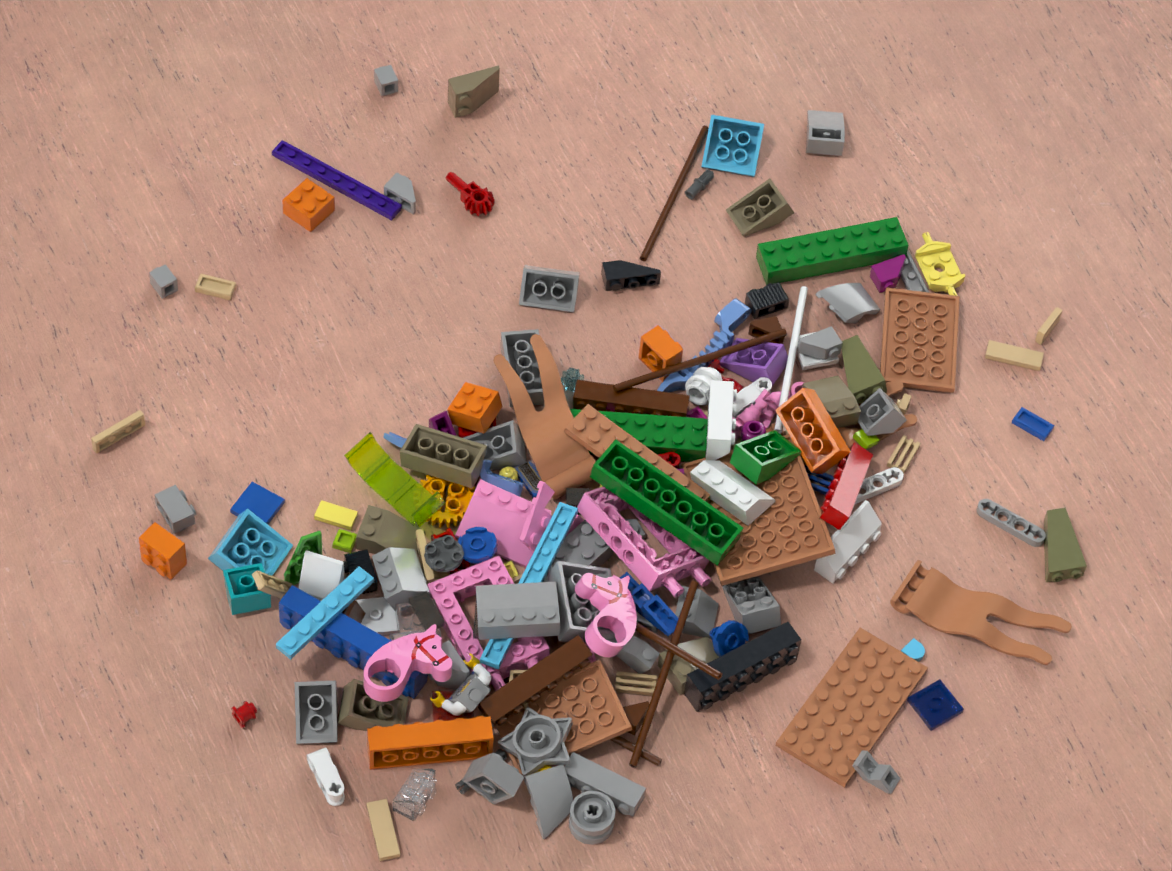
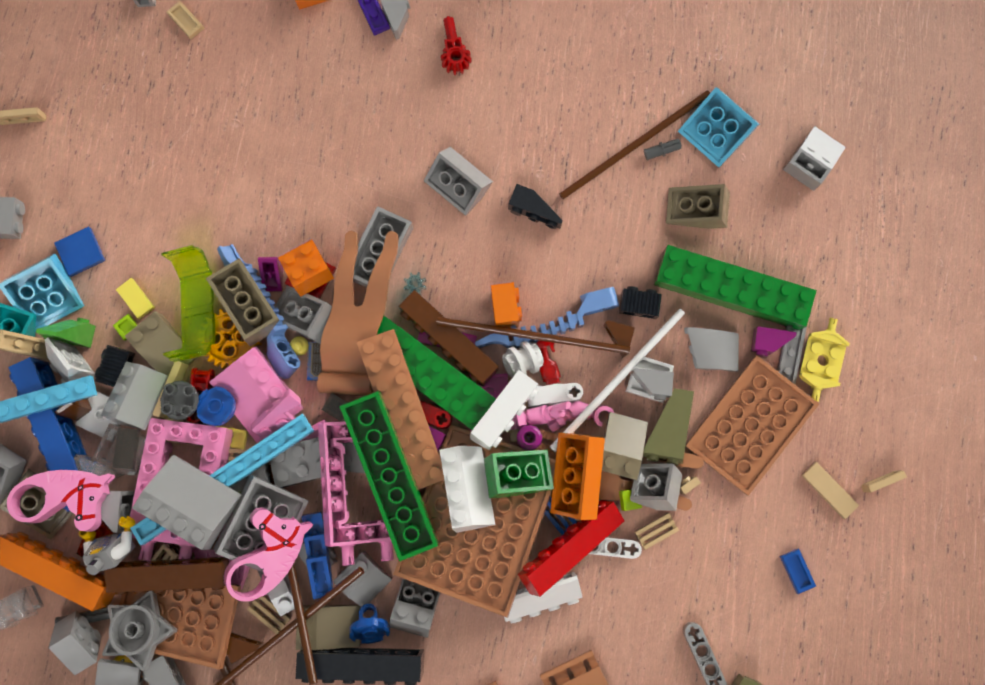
camera: 40 degrees right, 25 degrees up
(759, 361) = (588, 366): medium lavender slope -> none

